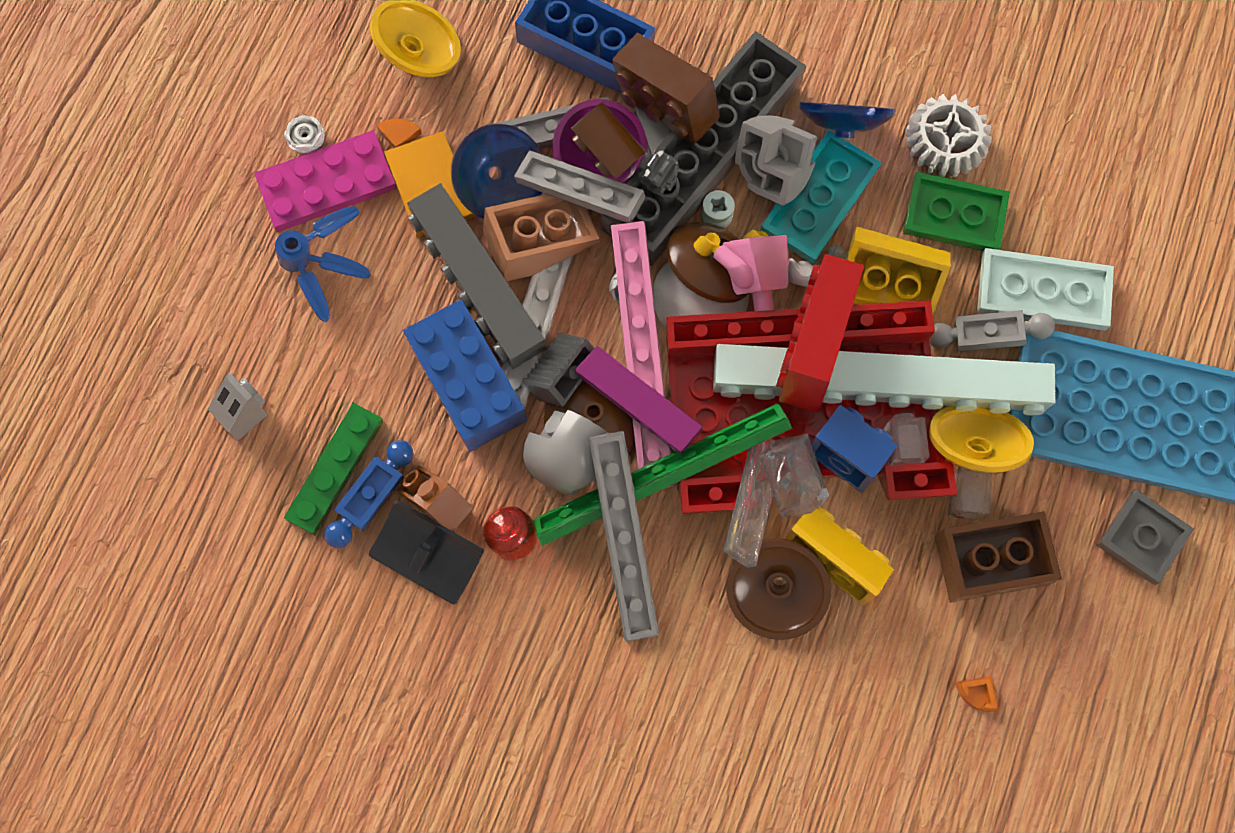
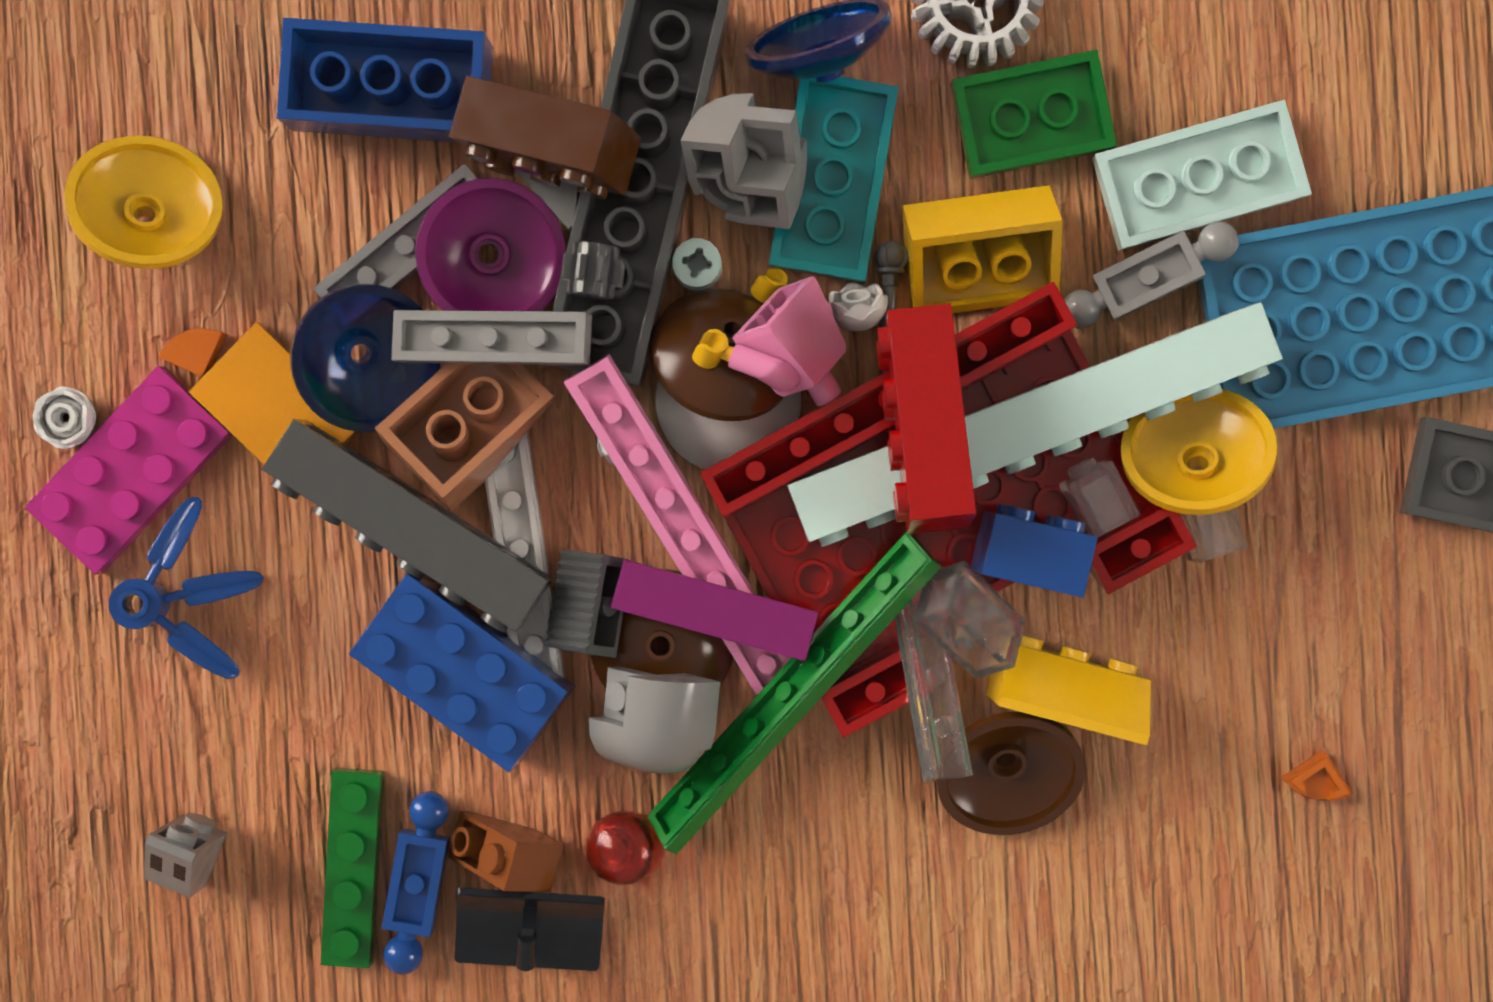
camera: 20 degrees left, 15 degrees up
(607, 141) = (501, 263): reddish brown brick -> none
(624, 536) = (776, 798): light grey tile -> none
(997, 556) = (1280, 599): reddish brown brick -> none

